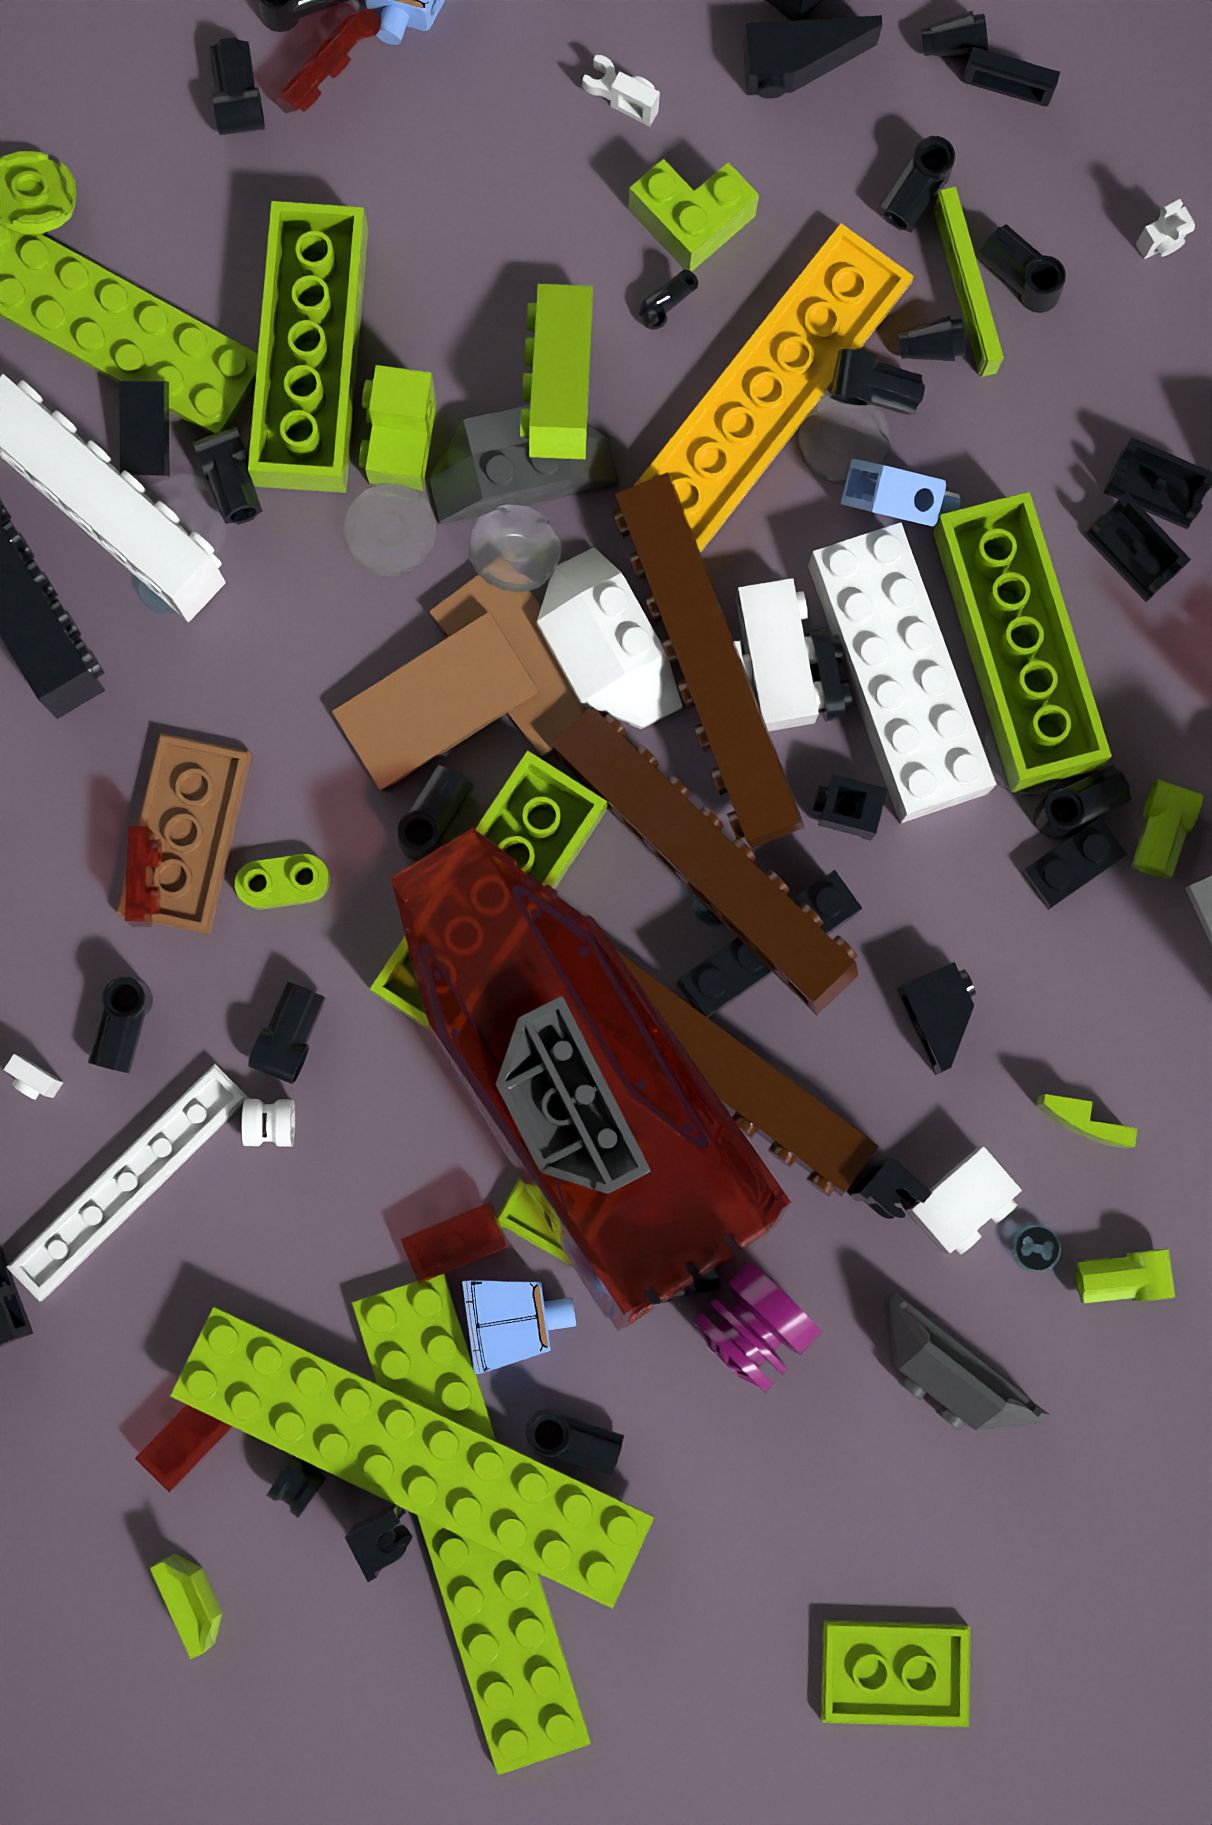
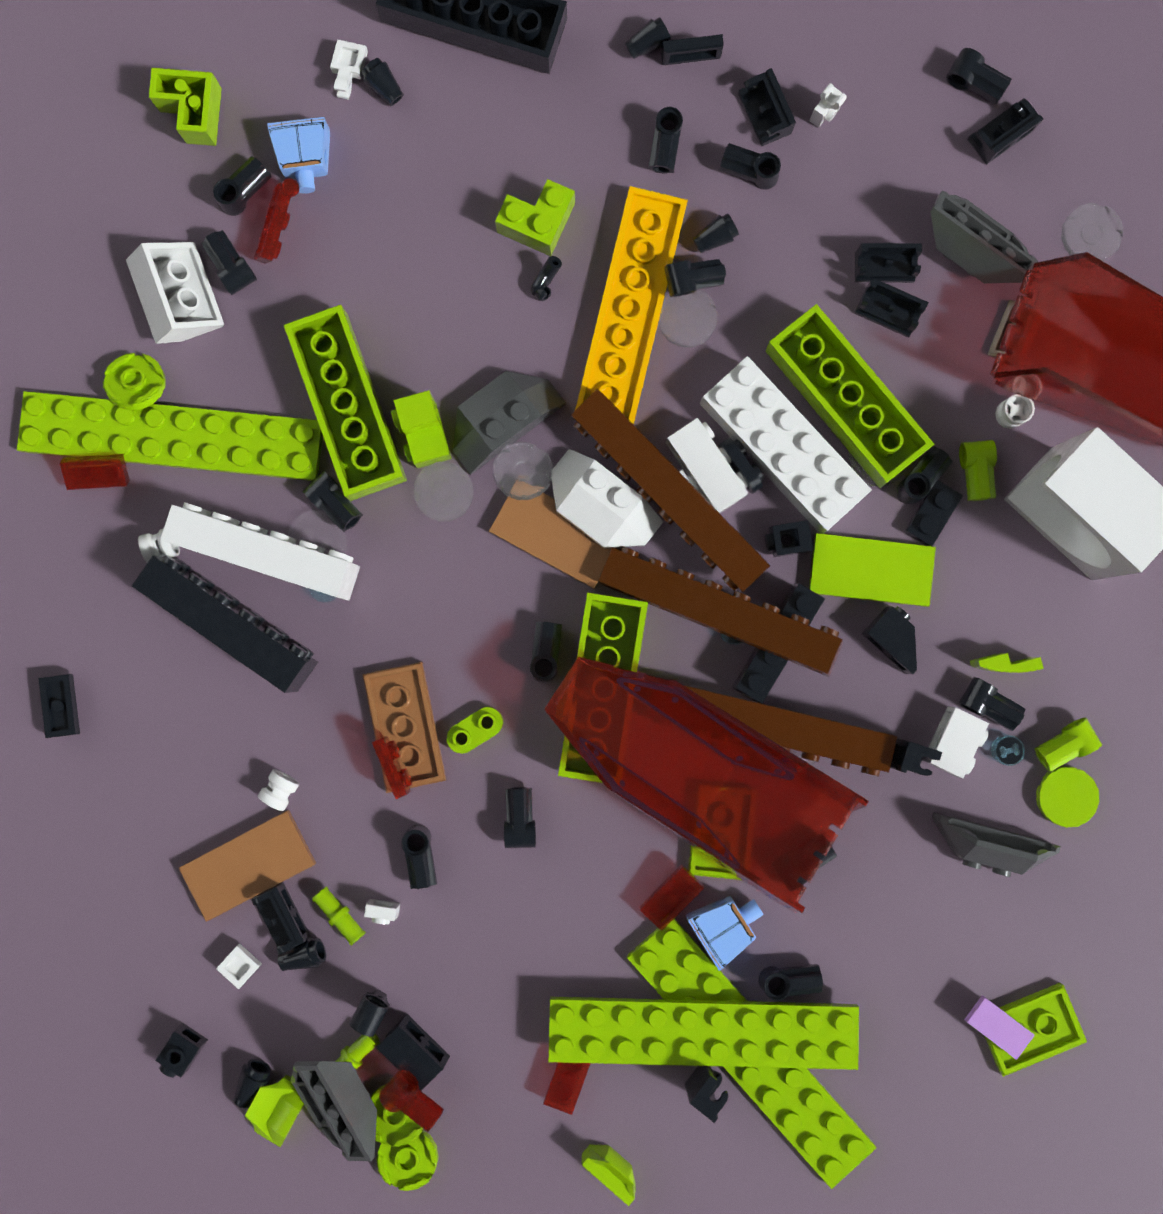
camera: 20 degrees left, 5 degrees up
(127, 1183) = (465, 945): white tile -> none
(142, 95) = (174, 291): none -> white slope
(144, 427) = (269, 495): black tile -> none
(279, 1124) = (538, 874): white wheel -> none
(296, 1486) = (643, 1078): black wheel -> none
(435, 701) = (517, 583): medium nougat tile -> none
(560, 371) = (504, 352): lime brick -> none
(566, 1103) = (706, 795): dark grey wedge -> none
(626, 94) = (465, 162): white plate -> none
(757, 1327) = (870, 871): magenta wheel -> none
(796, 52) = (554, 93): black slope -> none
(847, 1643) = (999, 1027): none -> lavender tile
(897, 493) = (736, 338): light blue torso -> none
(951, 904) = (872, 570): none -> lime tile
(967, 282) = (721, 189): lime tile -> none
(1033, 1160) = (986, 701): none -> black piece
(1081, 199) = (767, 107): none -> black hinge
(1094, 1354) = (1067, 796): none -> lime tile

